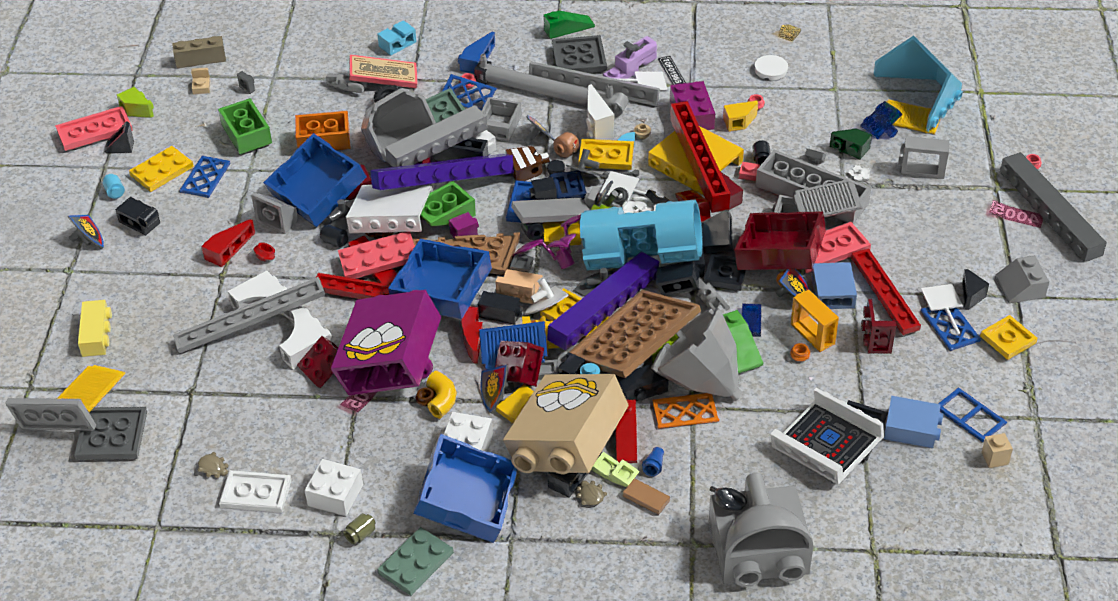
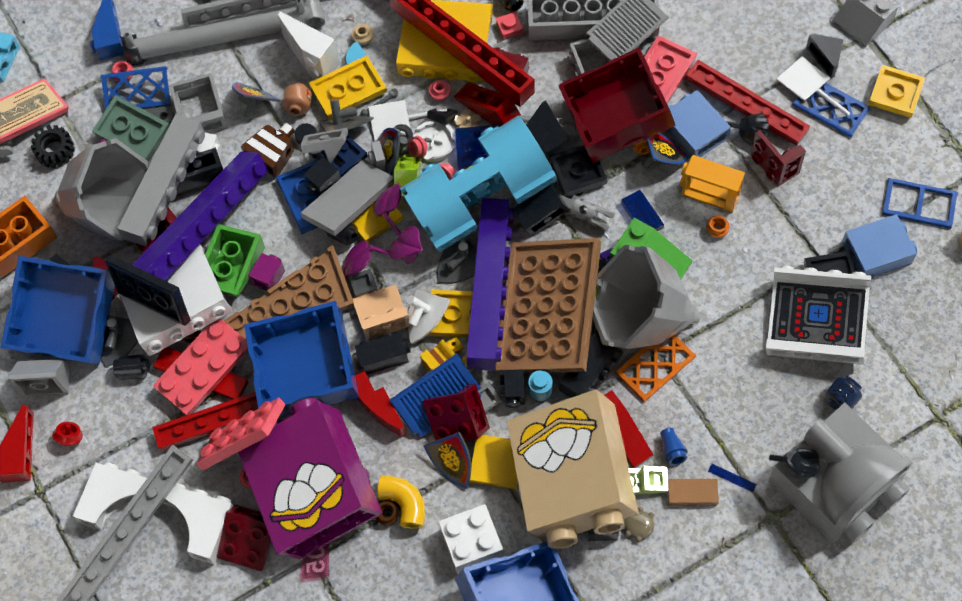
camera: 30 degrees left, 20 degrees up
(365, 291) = (240, 433): none -> coral plate
(374, 186) = (148, 290): none -> black tile
(562, 171) = (329, 141): none -> light grey slope
(624, 203) = (417, 147): none -> coral plate
(668, 184) = (442, 94): none -> coral plate
(683, 505) = (742, 482): none -> clear blue piece
(809, 494) = (844, 391): none -> dark blue head
(880, 304) = (750, 125): none -> black piece

